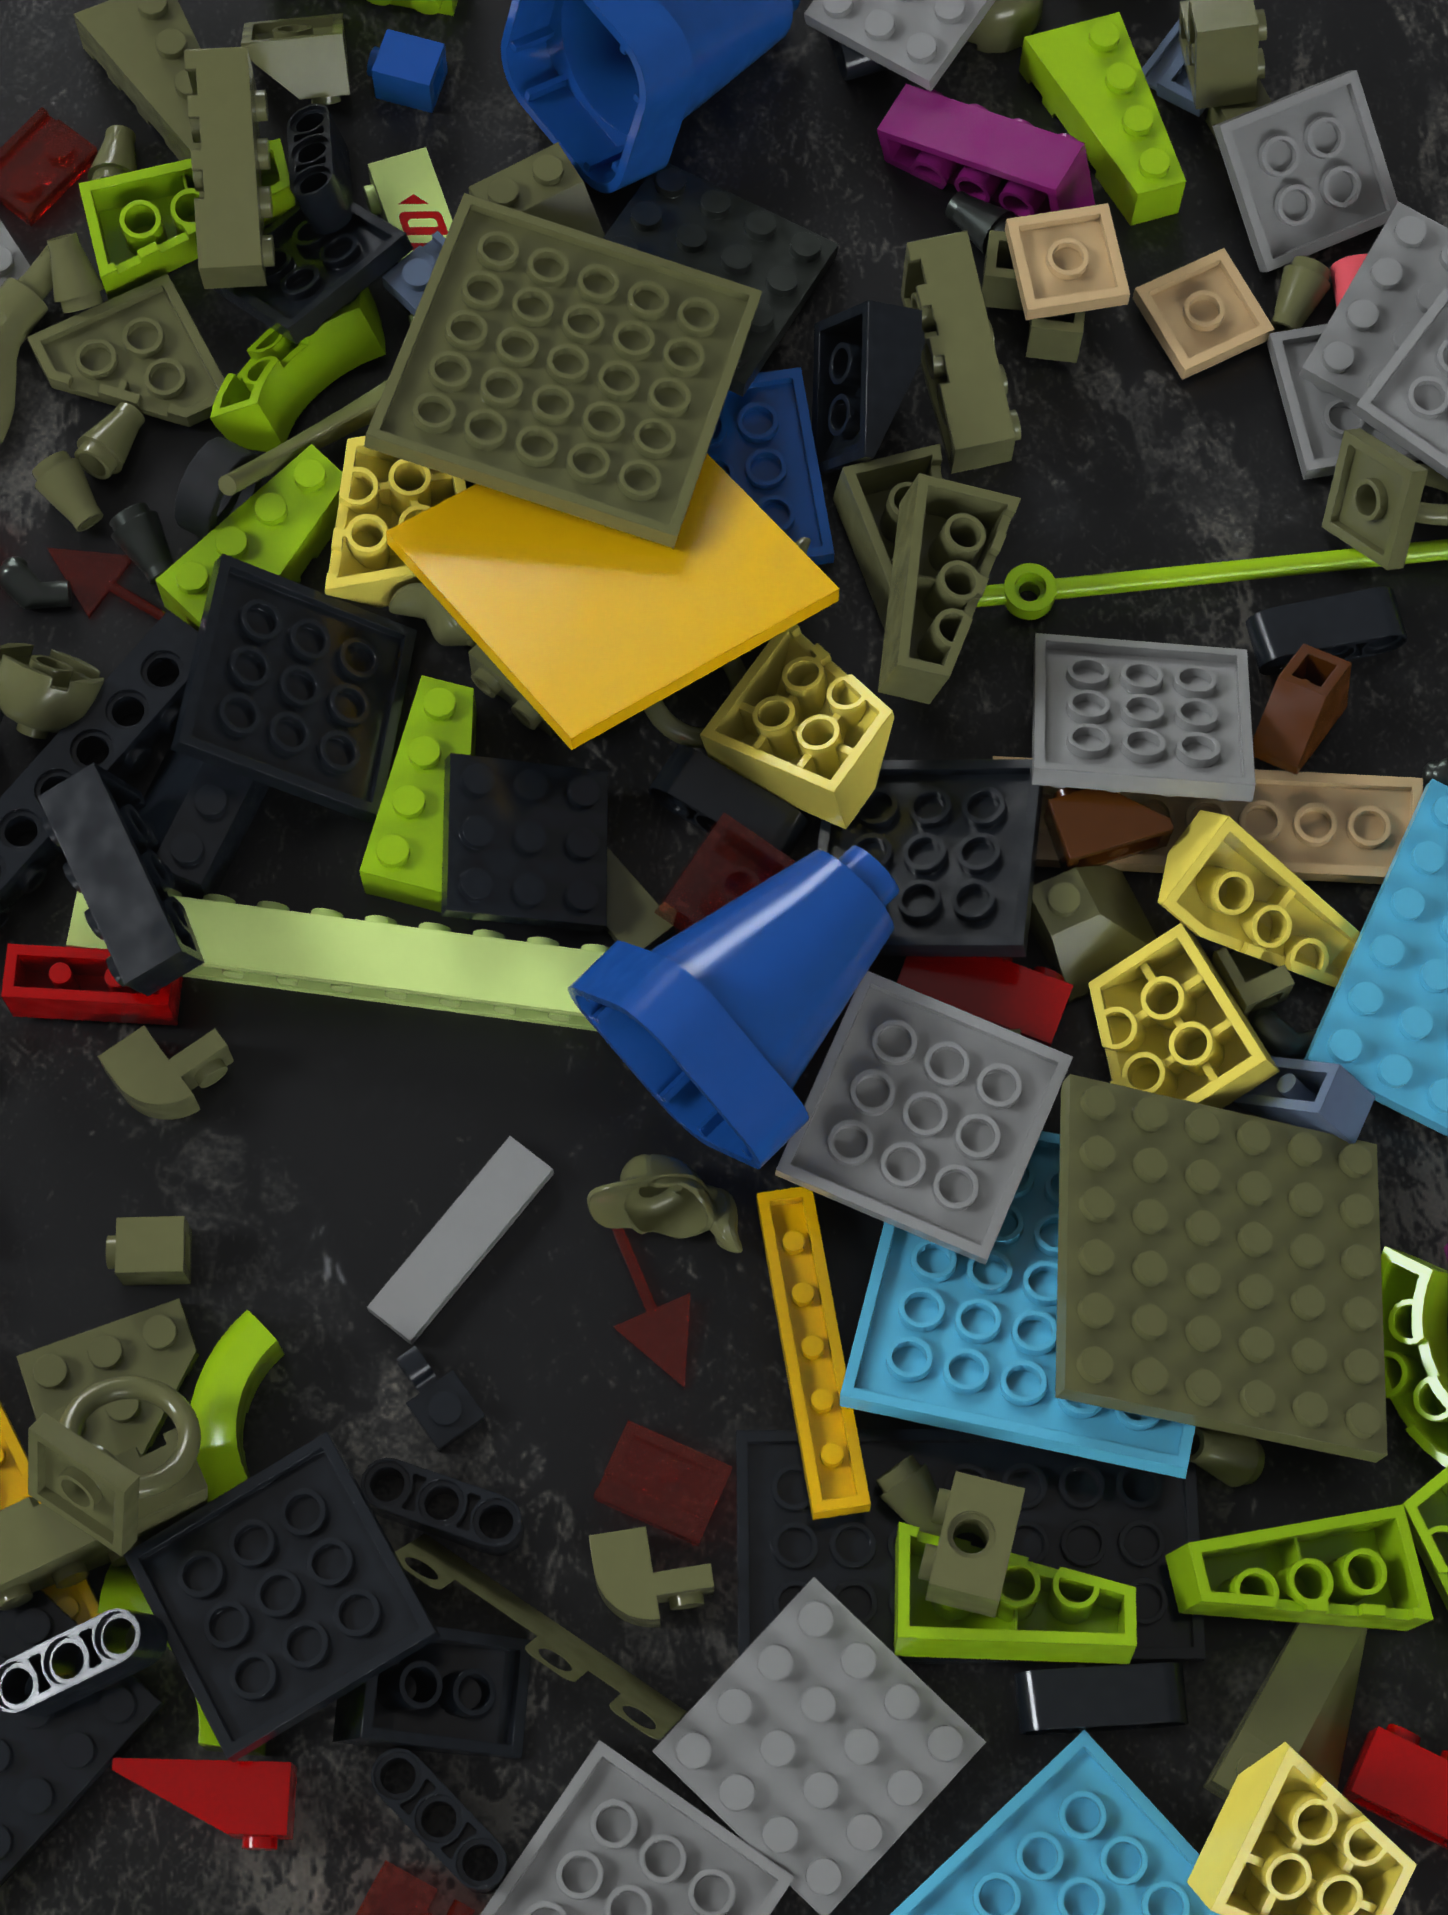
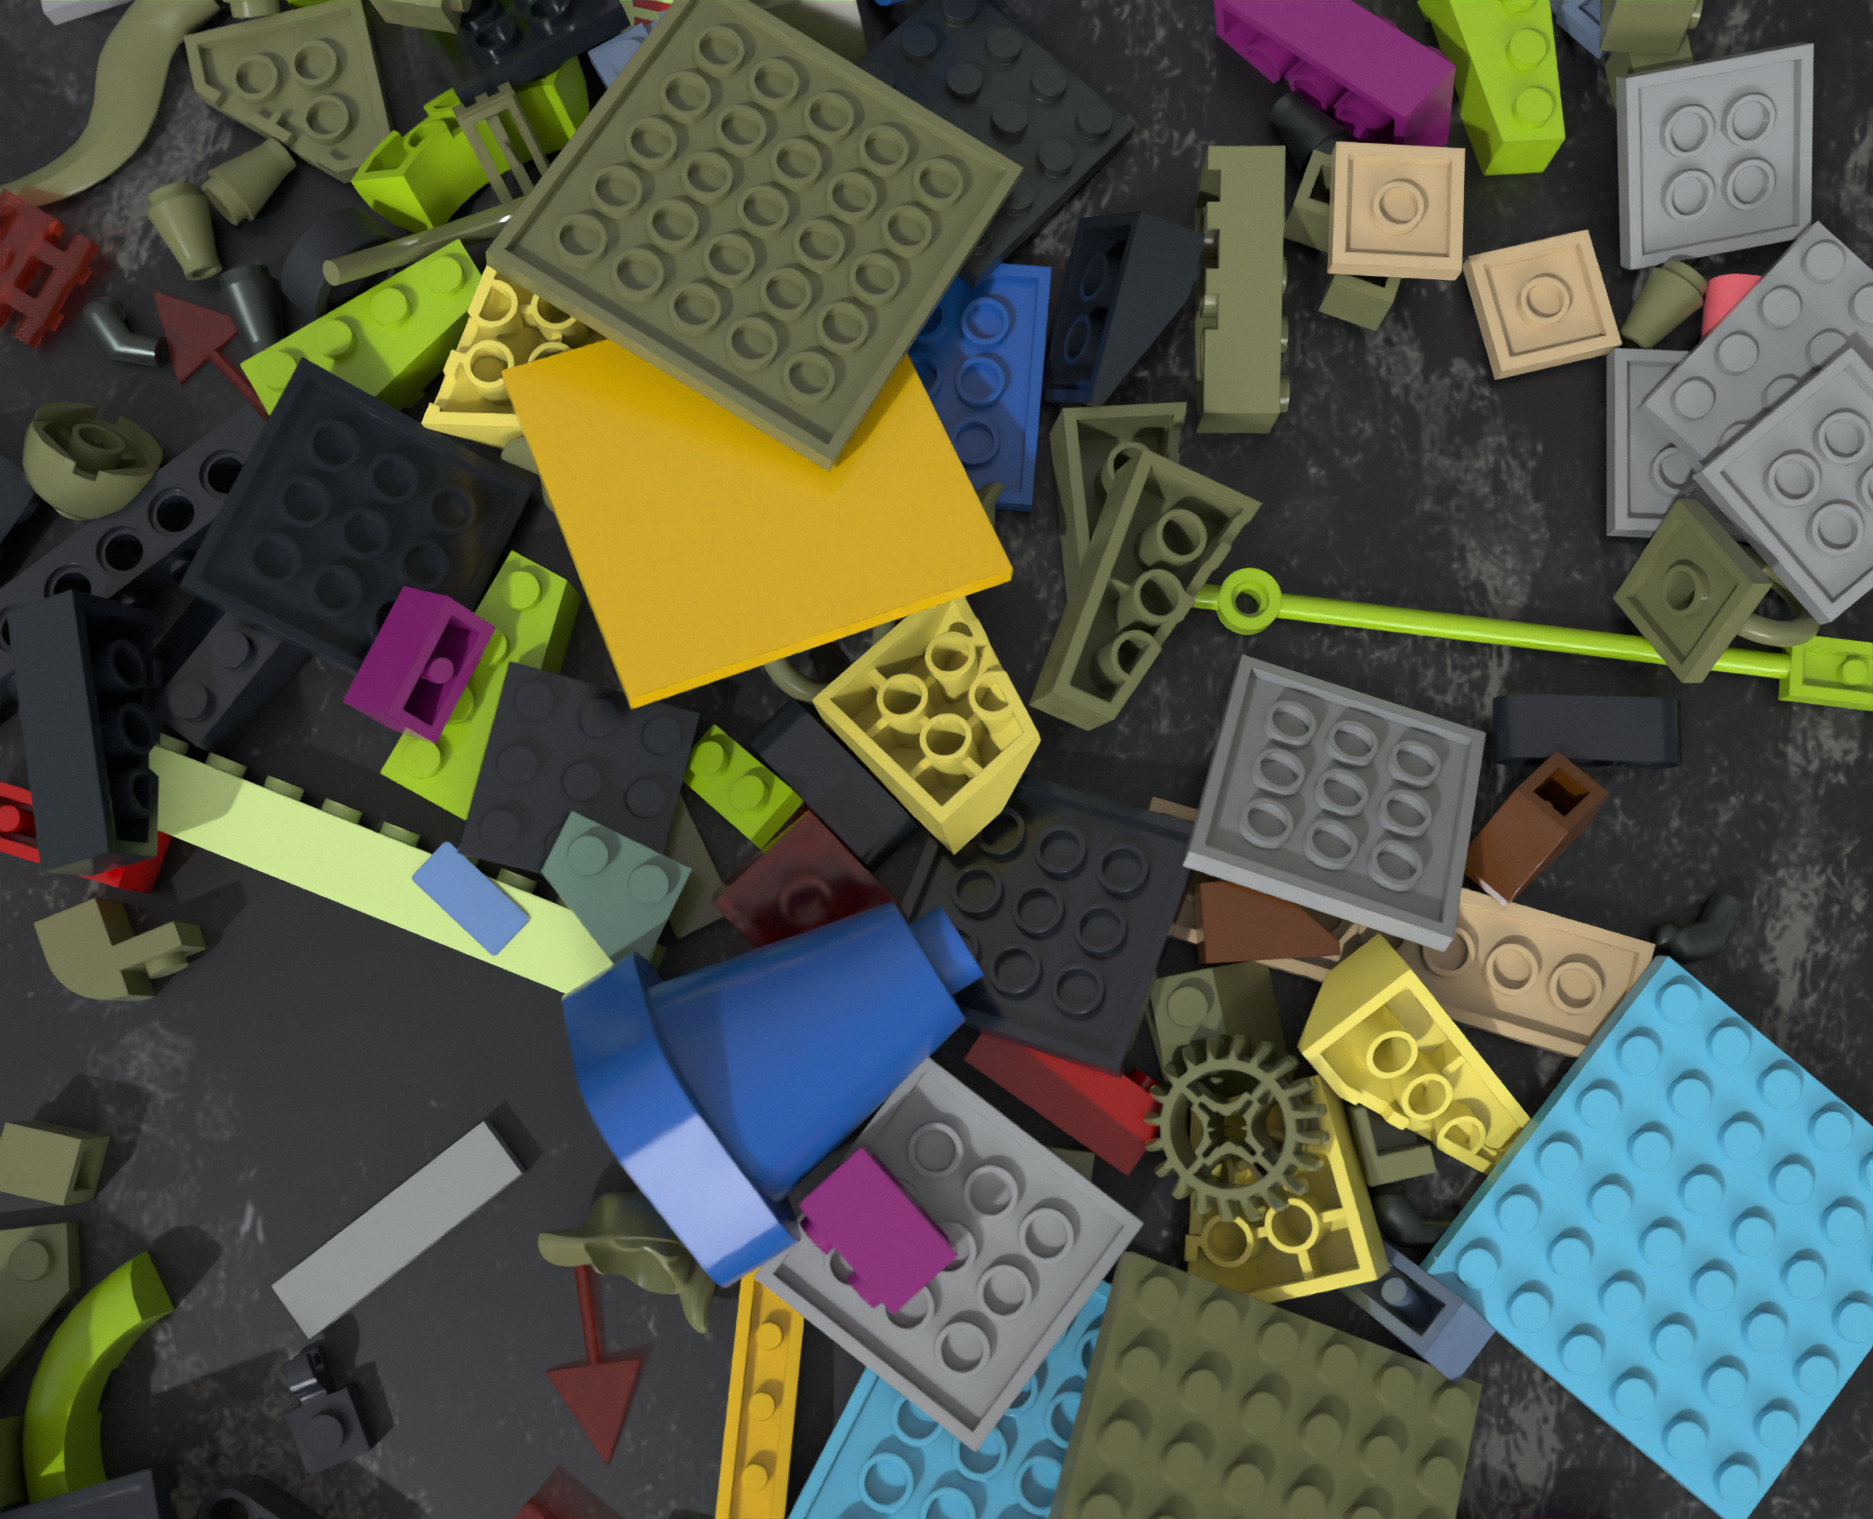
camera: 20 degrees right, 10 degrees up
(313, 339) = (487, 109): none -> olive tile
(376, 772) = (419, 664): none -> magenta brick
(459, 953) = (470, 898): none -> medium blue sticker
(576, 907) = (614, 886): none -> sand green wing
(655, 823) = (739, 787): none -> lime plate
(865, 1098) = (876, 1230): none -> magenta brick
(1119, 996) = (1258, 1144): none -> olive gear

